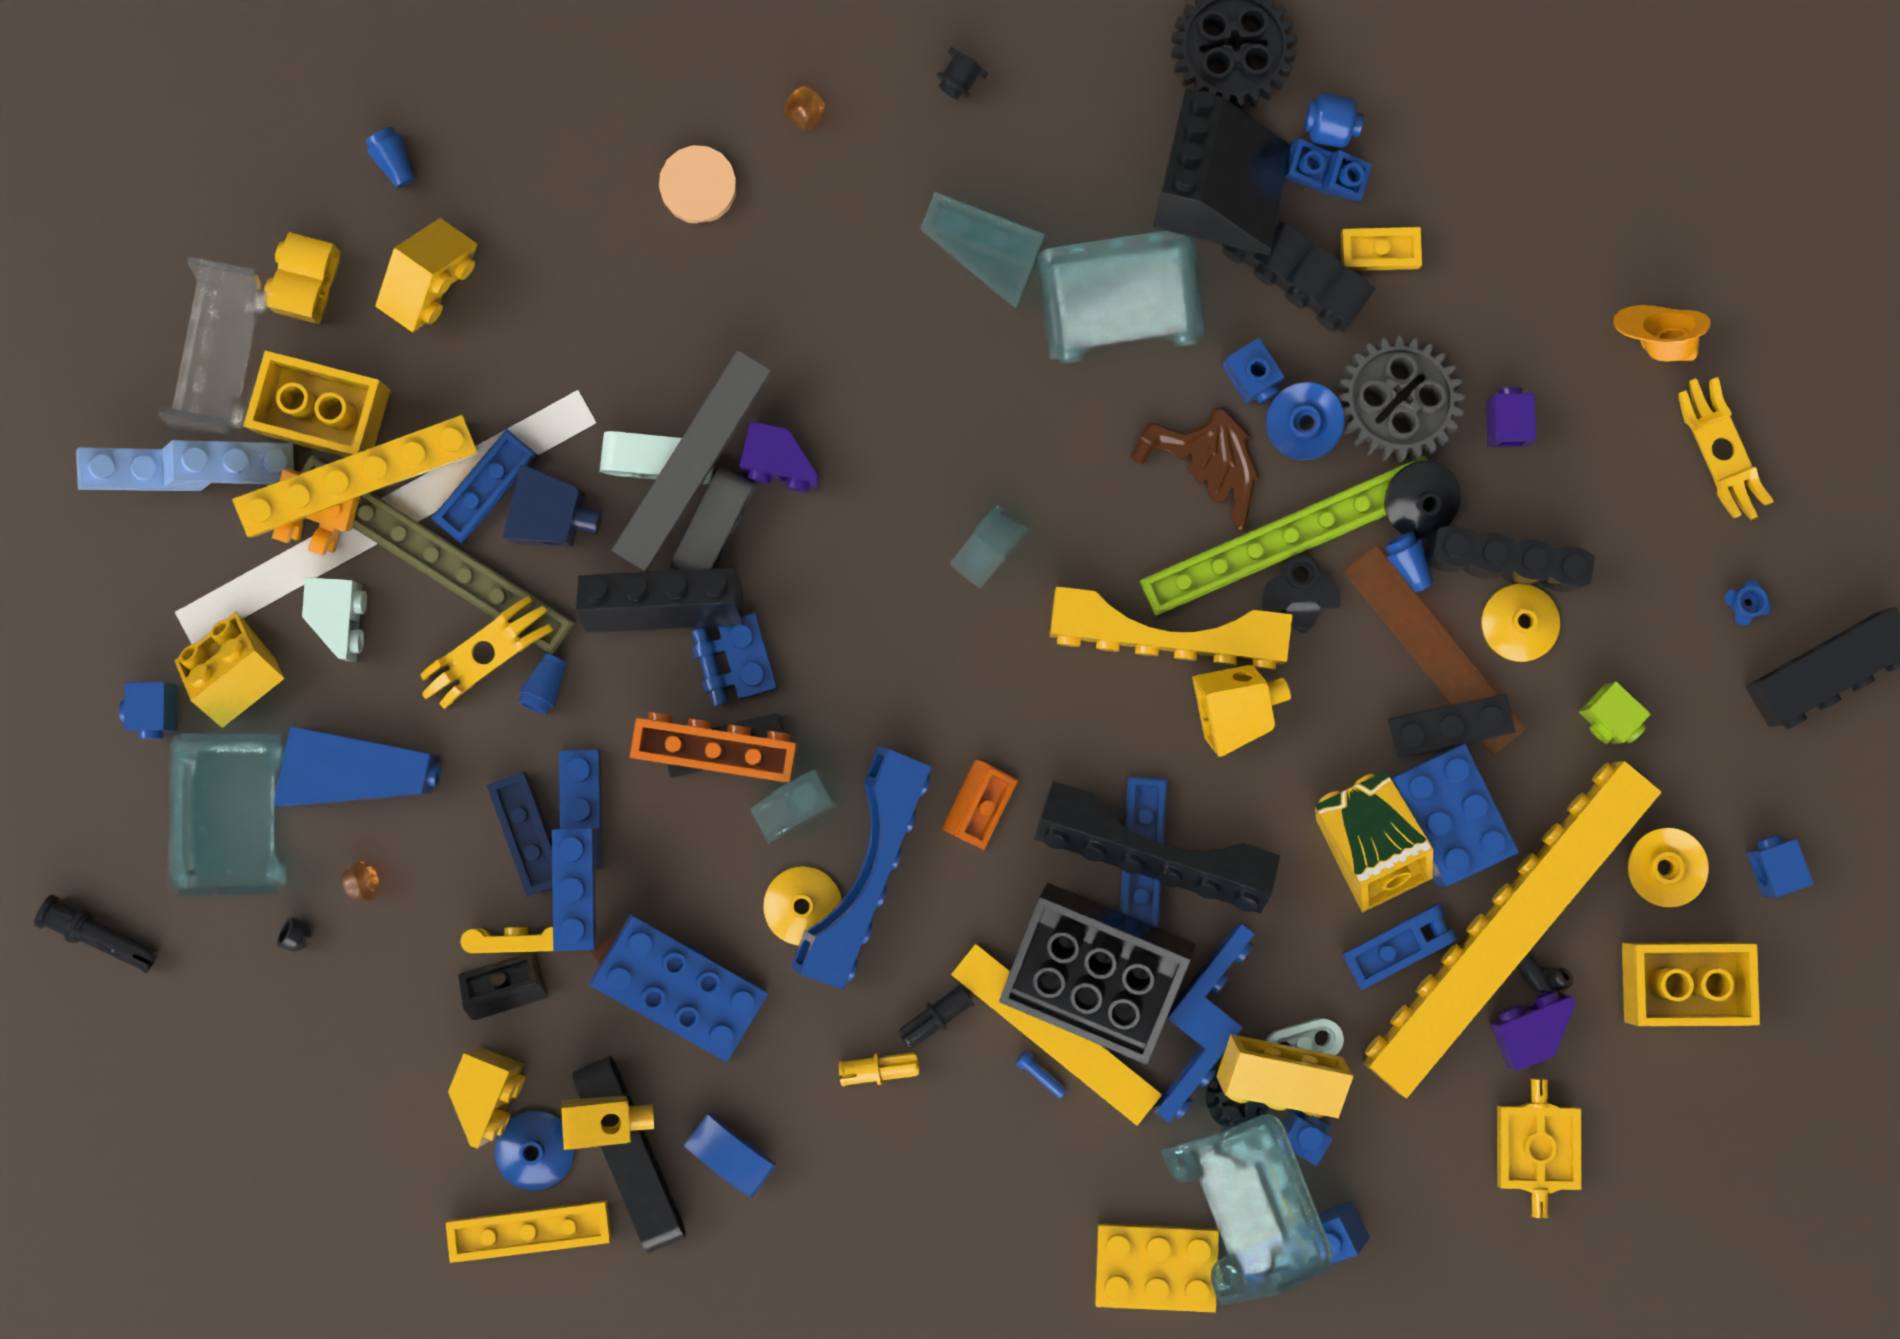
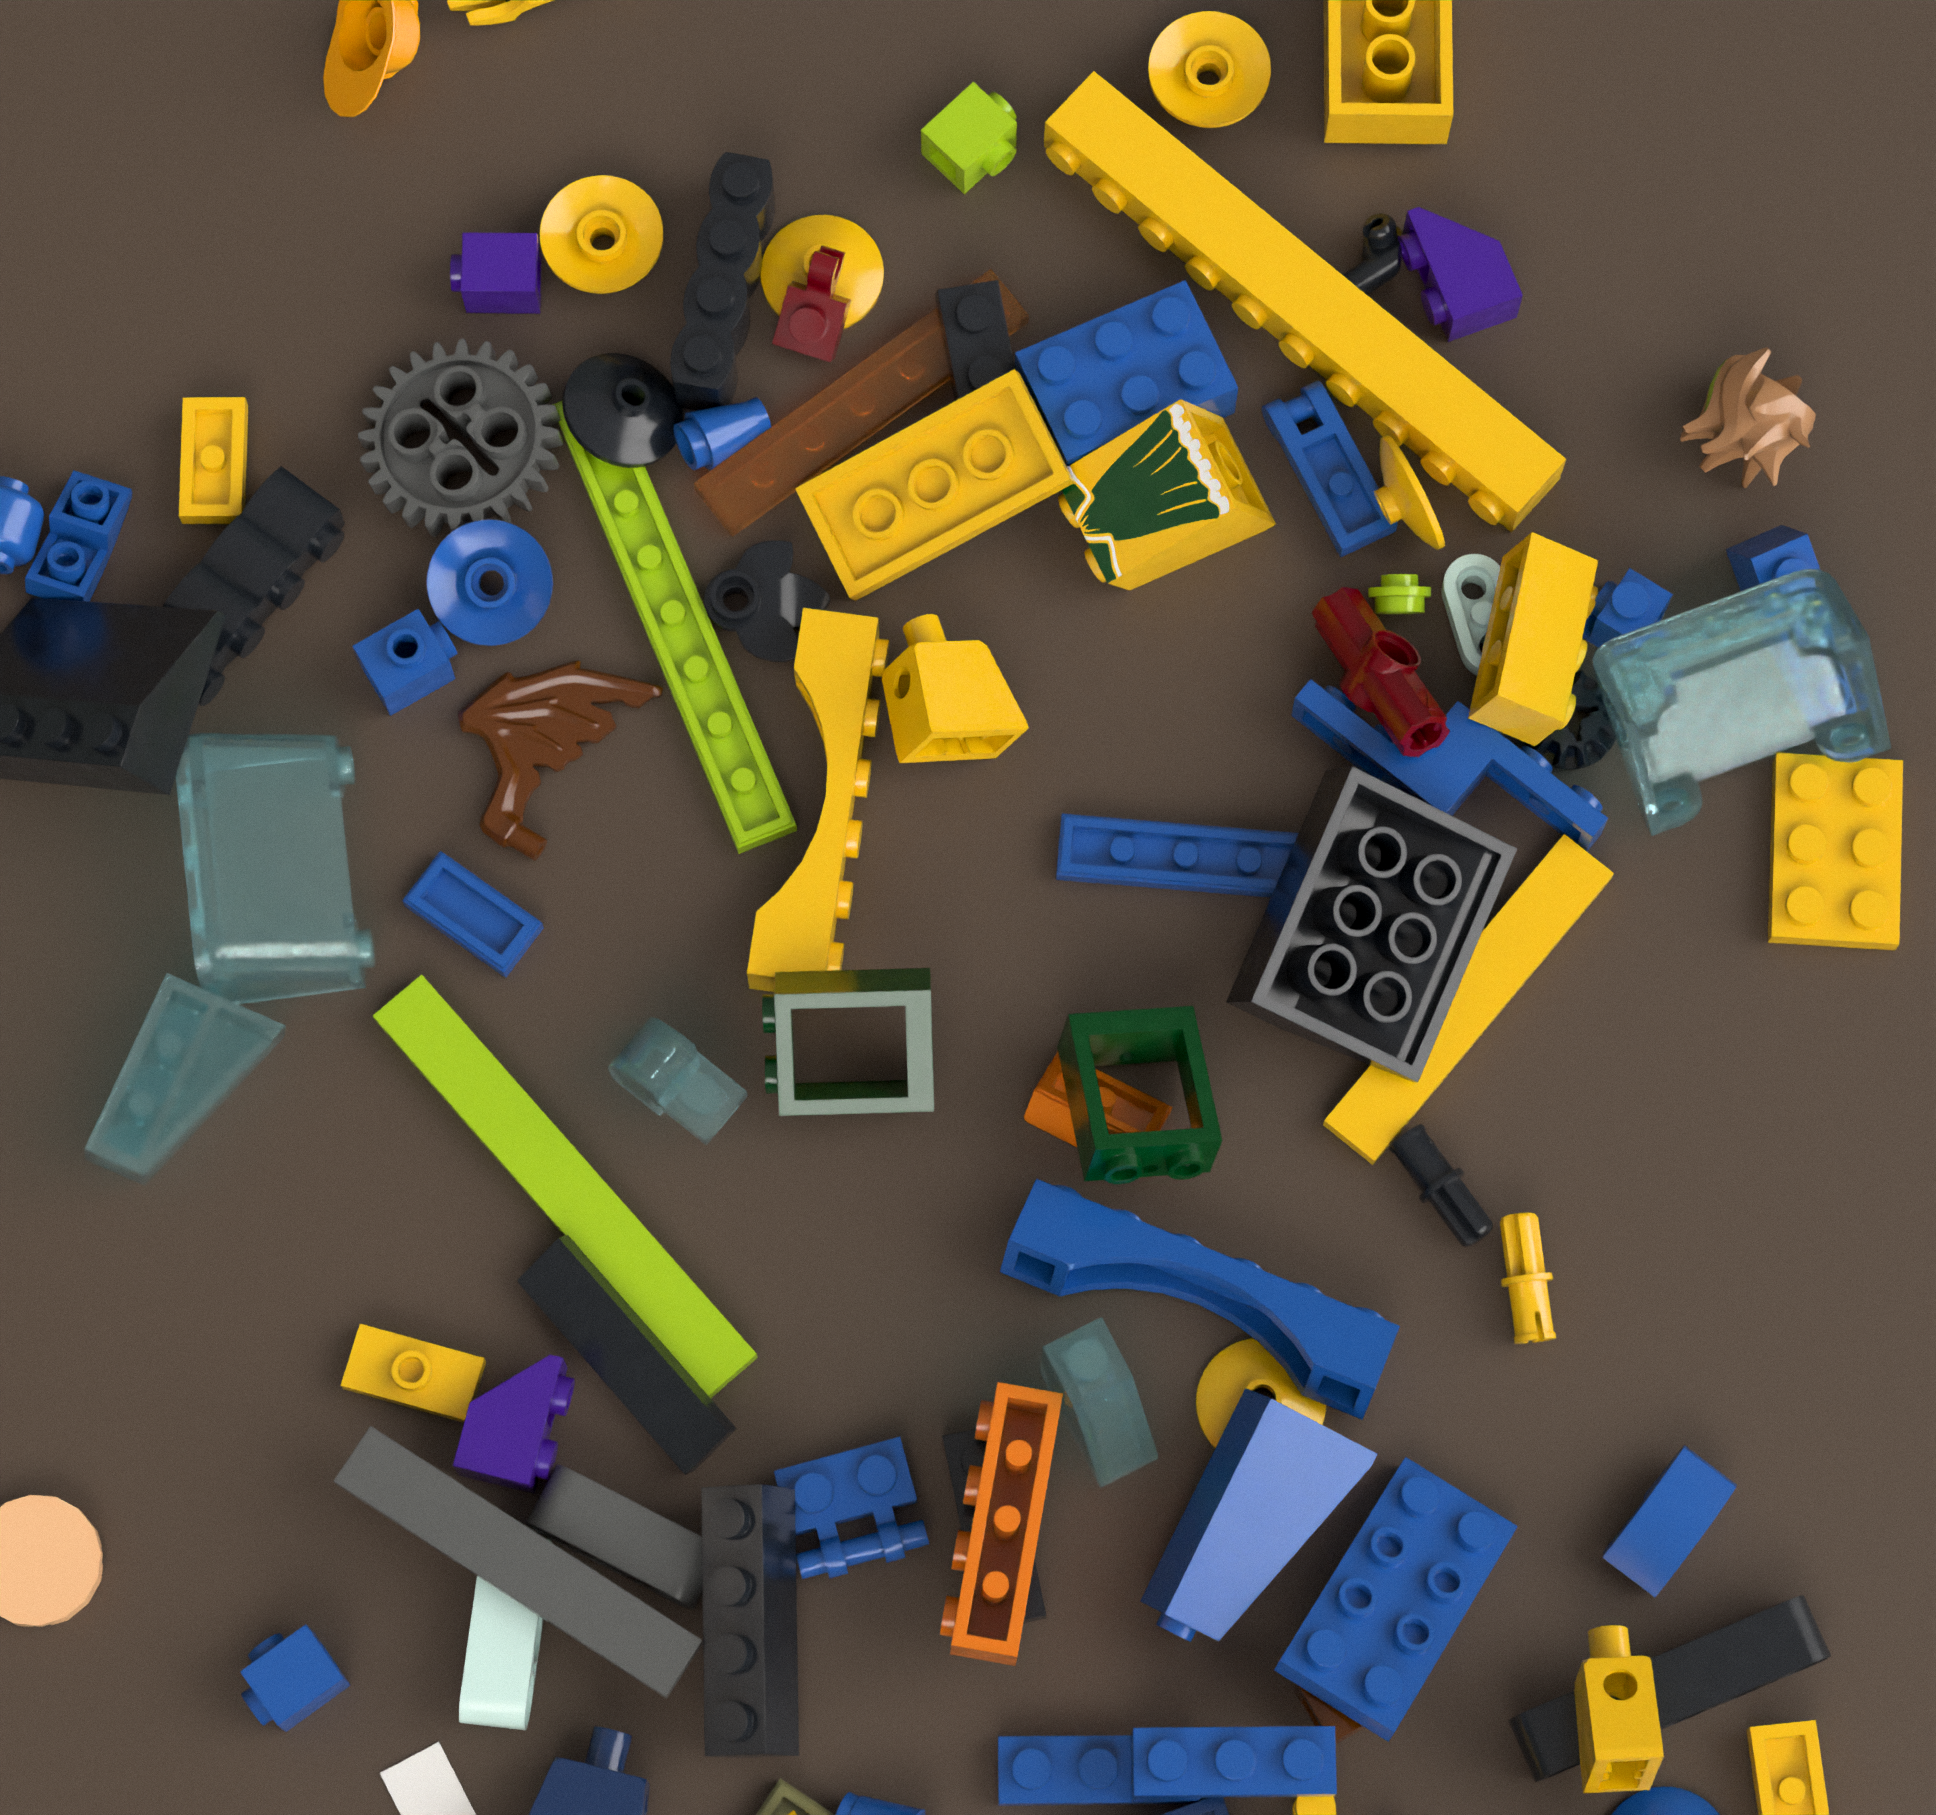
camera: 90 degrees left, 10 degrees down
(628, 334) = (291, 1678): none -> blue brick
(729, 900) = (1250, 1514): none -> slope
(812, 397) = (413, 1373): none -> yellow plate
(824, 522) = (626, 1354): none -> black tile
(927, 482) = (564, 1184): none -> lime tile
(1022, 827) = (1134, 1039): none -> dark green window
(1026, 1061) = (1513, 1045): blue piece -> none
(1043, 648) = (846, 990): none -> window
(1095, 421) = (473, 914): none -> blue tile
(1230, 874) = (1134, 944): black arch -> none
(1260, 978) = (1380, 672): none -> dark red piece
(1315, 990) = (1399, 595): none -> lime plate
(1376, 695) = (934, 485): none -> yellow plate
(1376, 992) = (1404, 496): none -> yellow dish
(1440, 1219) = (1751, 418): none -> medium nougat hair
(1491, 615) = (812, 313): none -> dark red plate
(1539, 1147) = (1639, 272): yellow plate -> none
(1552, 468) = (594, 209): none -> yellow dish

